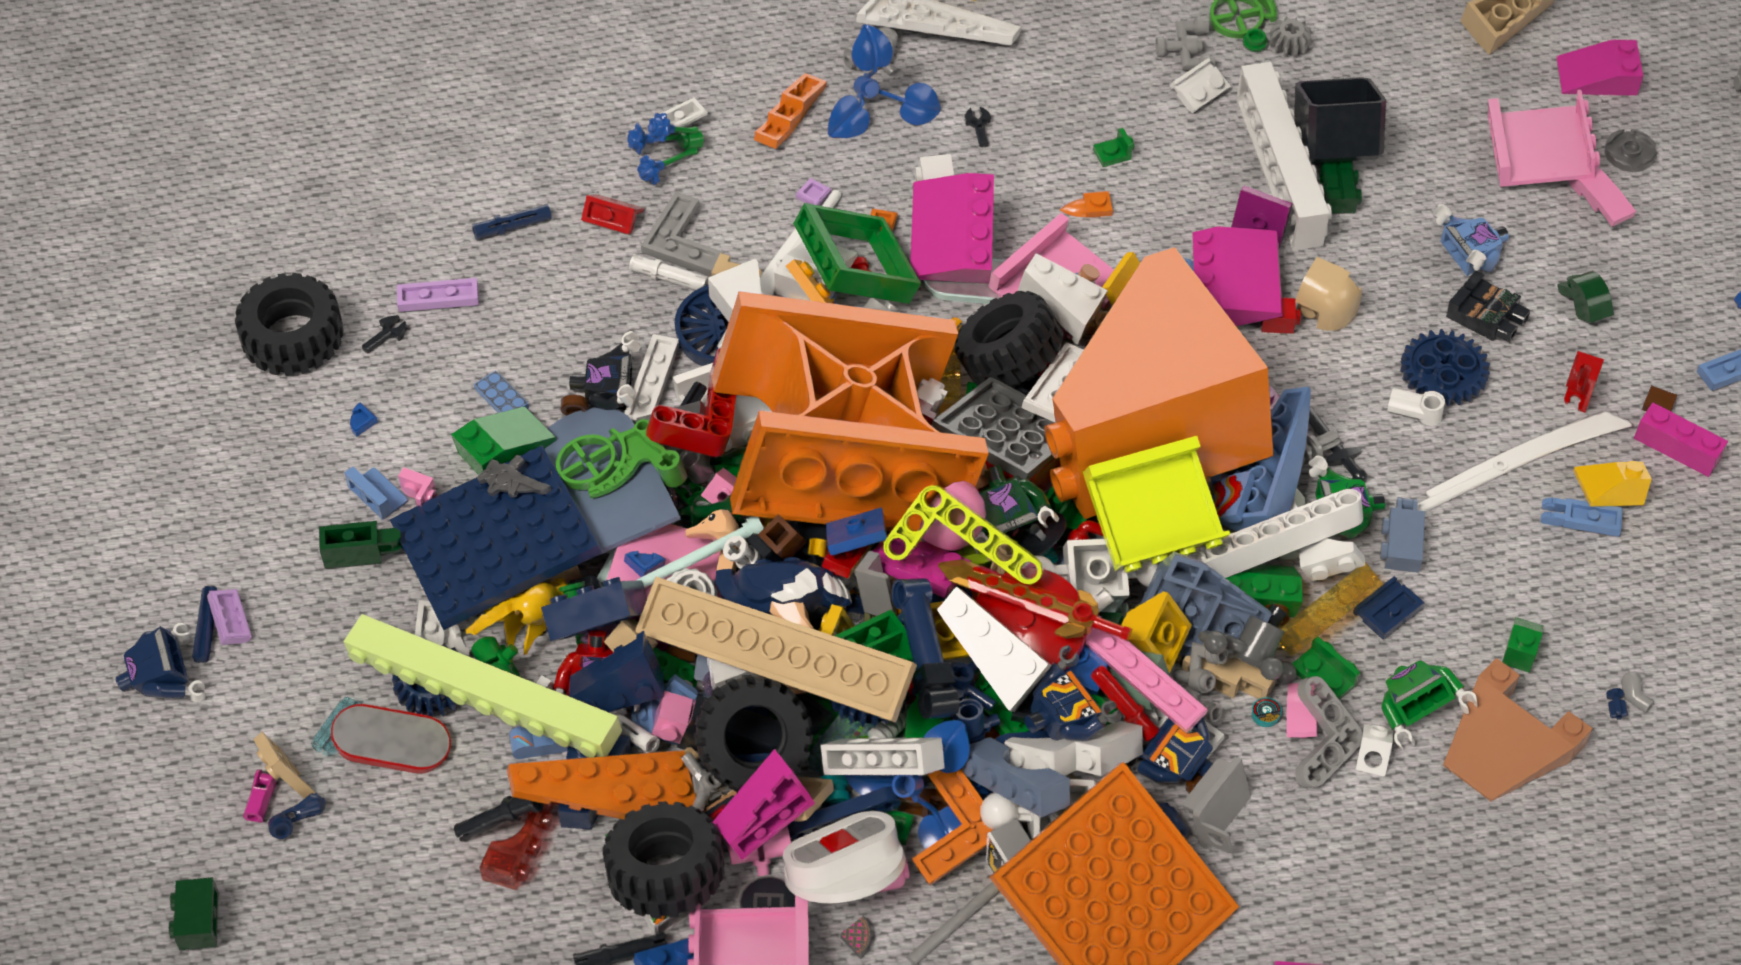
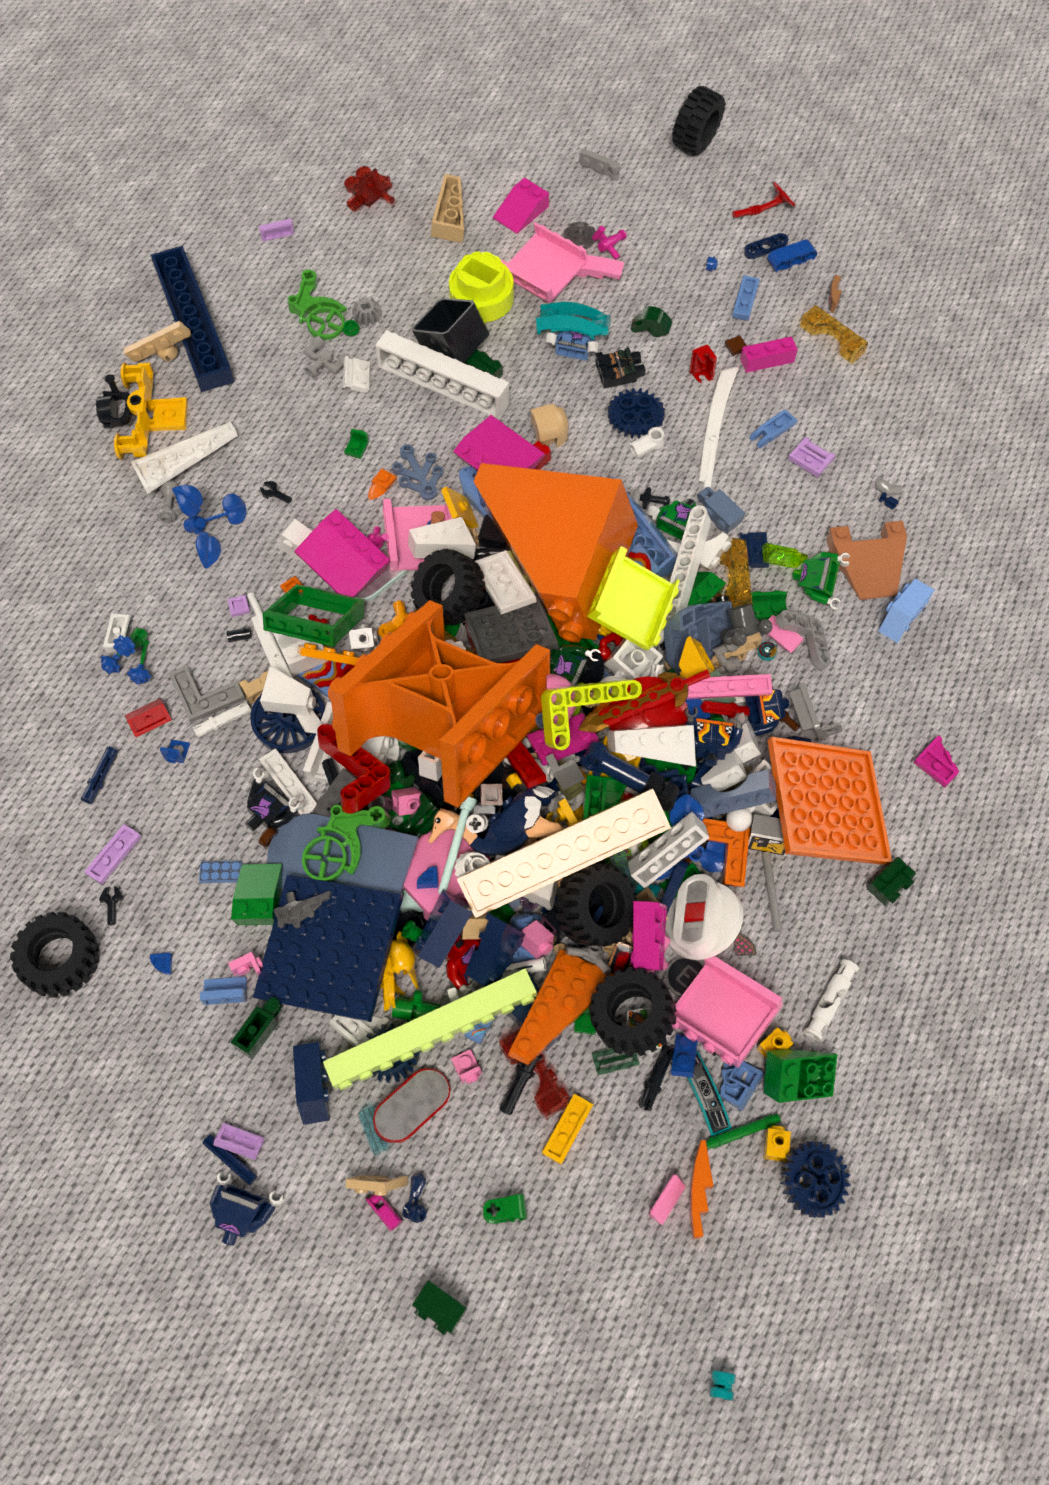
camera: 50 degrees left, 10 degrees up
(322, 634) = (310, 1083): none -> dark blue wedge
(349, 903) = (509, 1209): none -> green piece
(477, 762) = (467, 1067): none -> bright pink bracket
(487, 904) = (567, 1129): none -> yellow plate
(587, 262) = (172, 755): none -> blue bracket
(589, 885) = (635, 1062): none -> clear green tile
(779, 217) = (239, 634): none -> black pin
(789, 112) = (169, 573): orange slope -> none
(856, 531) = (523, 753): blue plate -> none
(1008, 246) = (376, 538): none -> dark pink piece
(1138, 228) = (418, 473): none -> sand blue plant
(1261, 212) = (471, 413): magenta plate -> none
(1375, 739) = (828, 616): white bracket -> none
(1408, 637) = (782, 556): none -> clear neon green panel
(1437, 108) = (485, 281): none -> neon yellow piece
(1472, 205) = (560, 317): none -> teal wedge
(1476, 814) = (905, 609): none -> light blue wedge
(1522, 644) = (824, 510): green slope -> none
(1579, 581) = (809, 460): none -> lavender plate
(1614, 483) = (769, 399): yellow slope -> none
(1648, 180) = (608, 242): none -> dark pink piece

